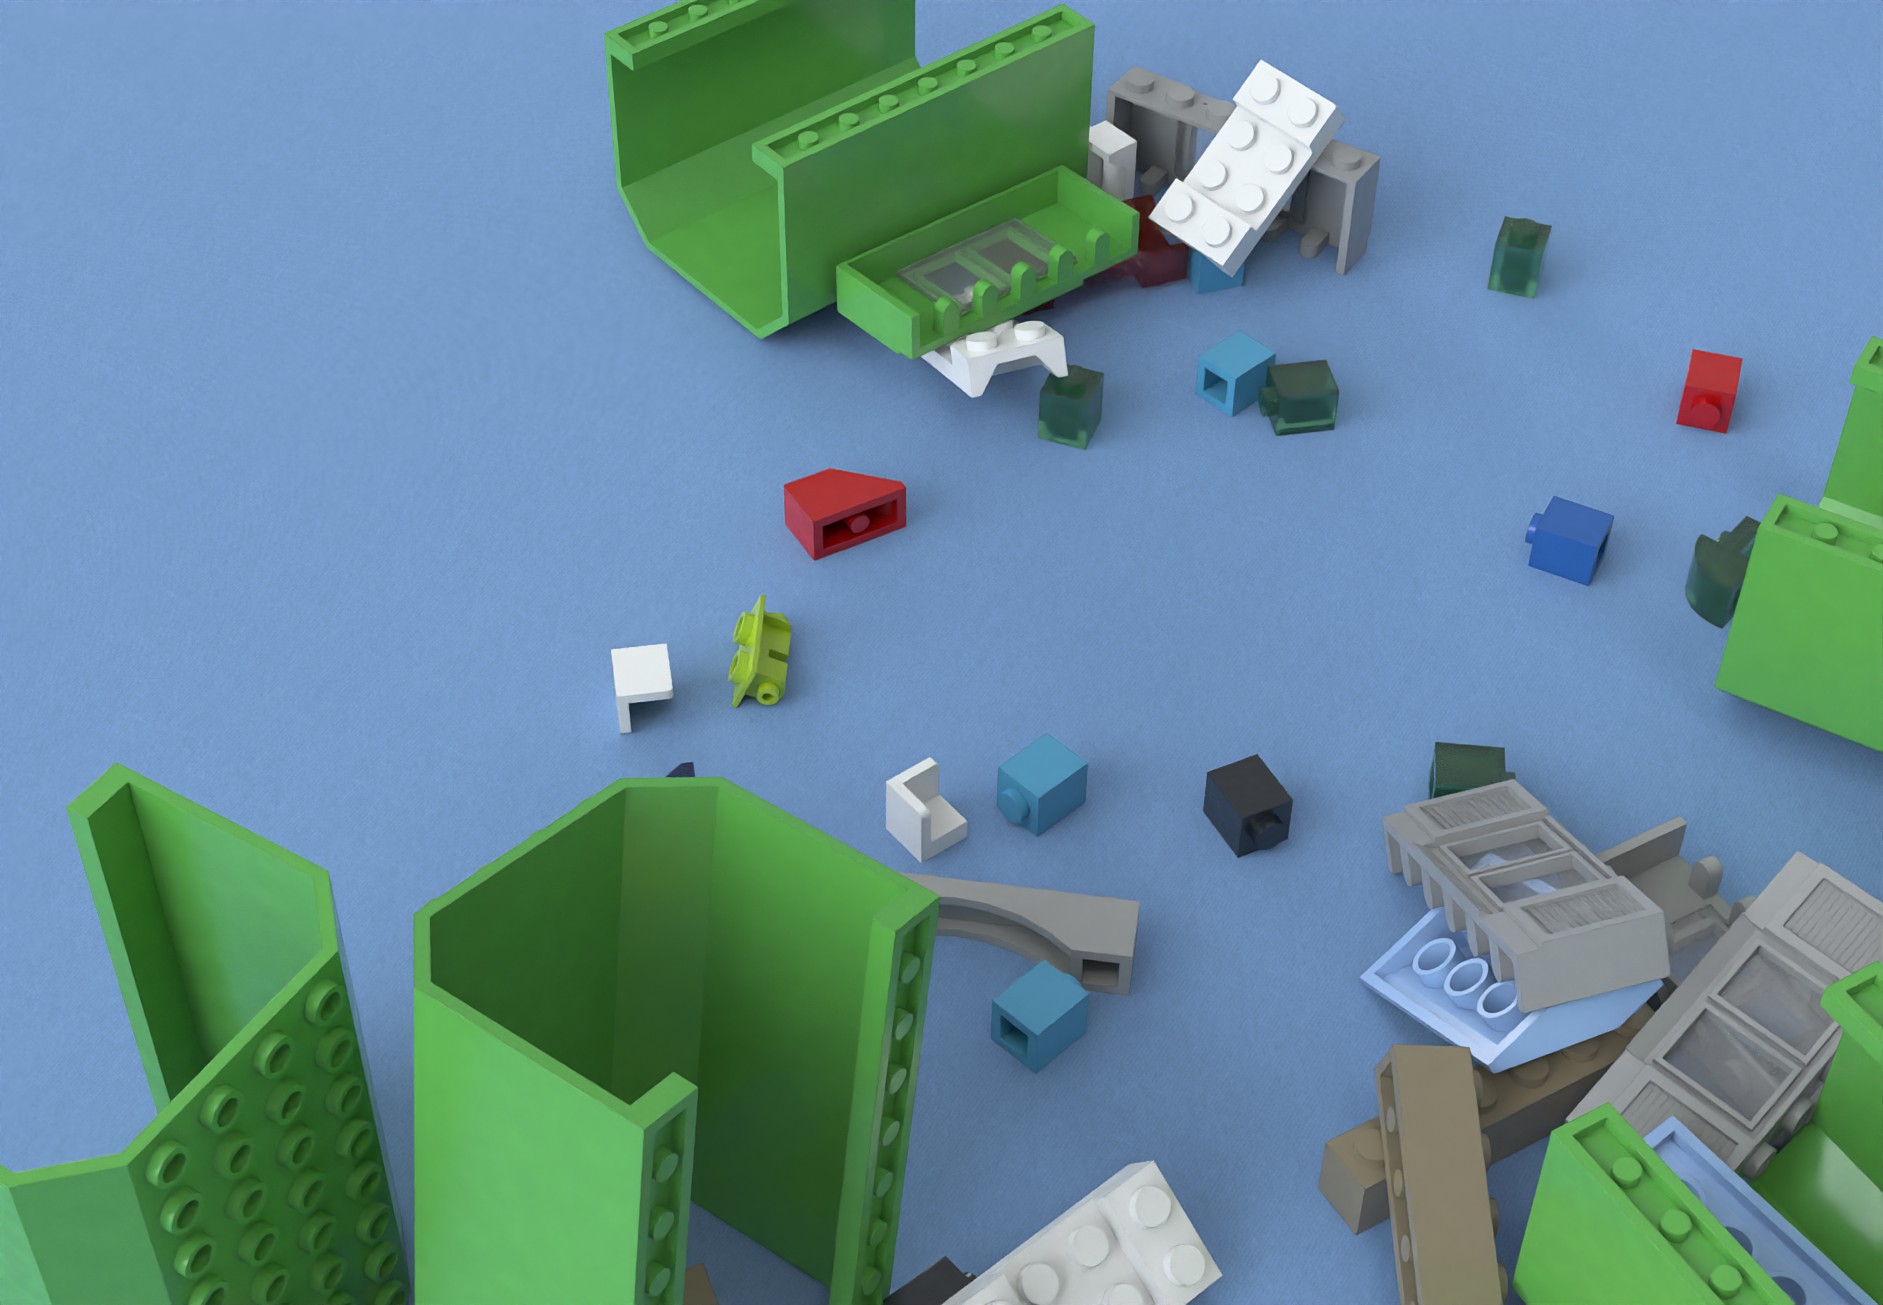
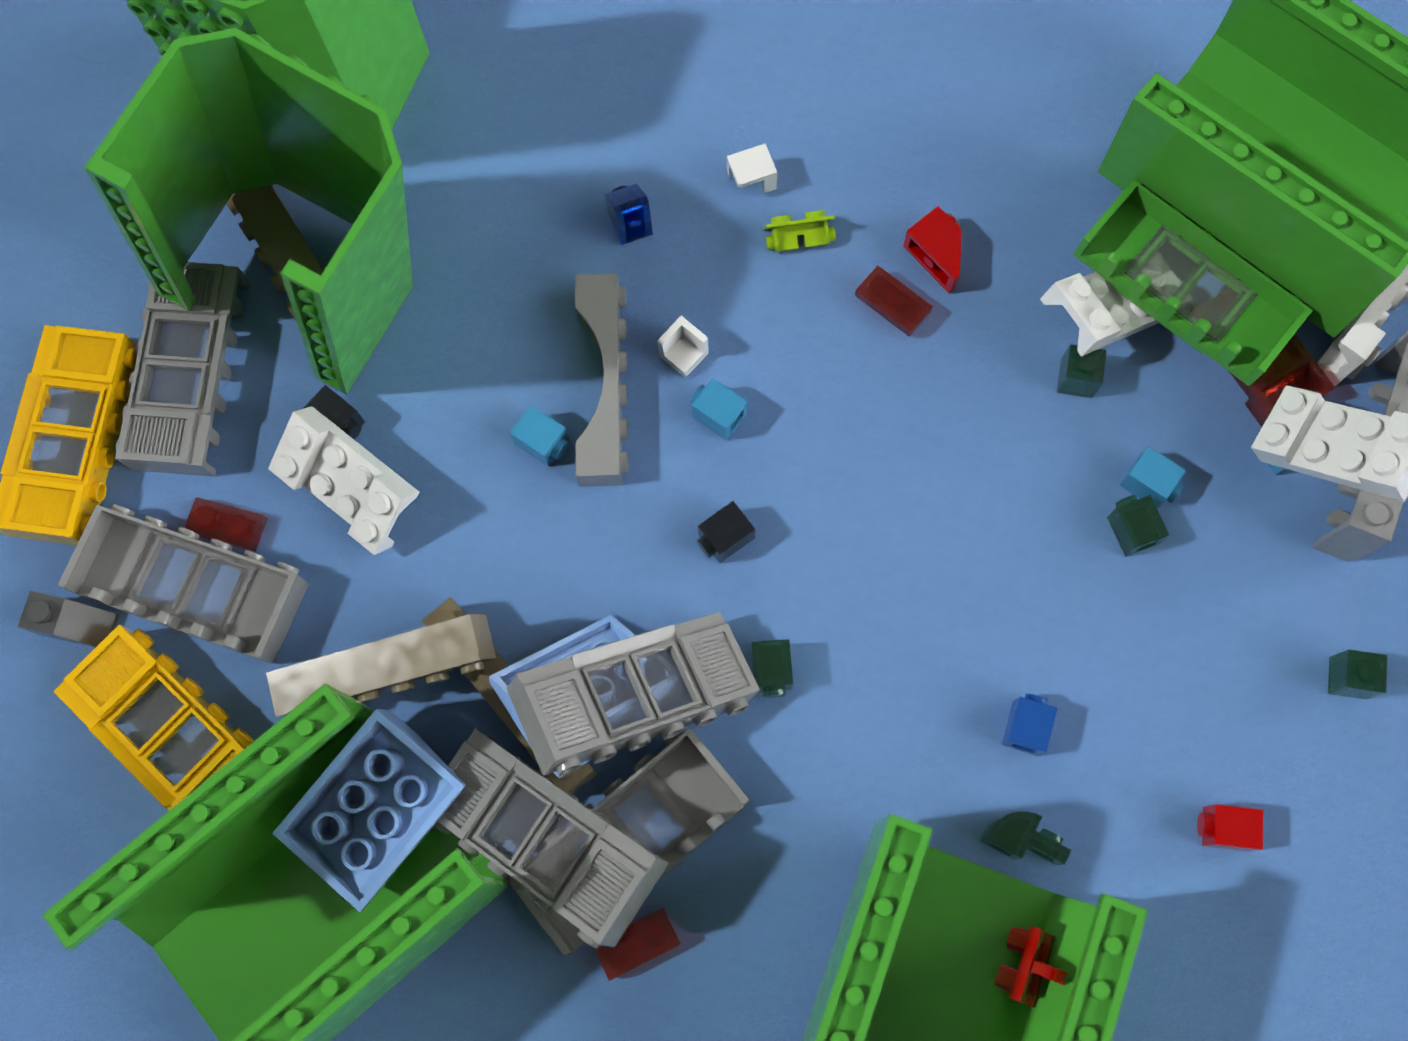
camera: 85 degrees right, 30 degrees up
(909, 572) = (893, 301): none -> clear red plate

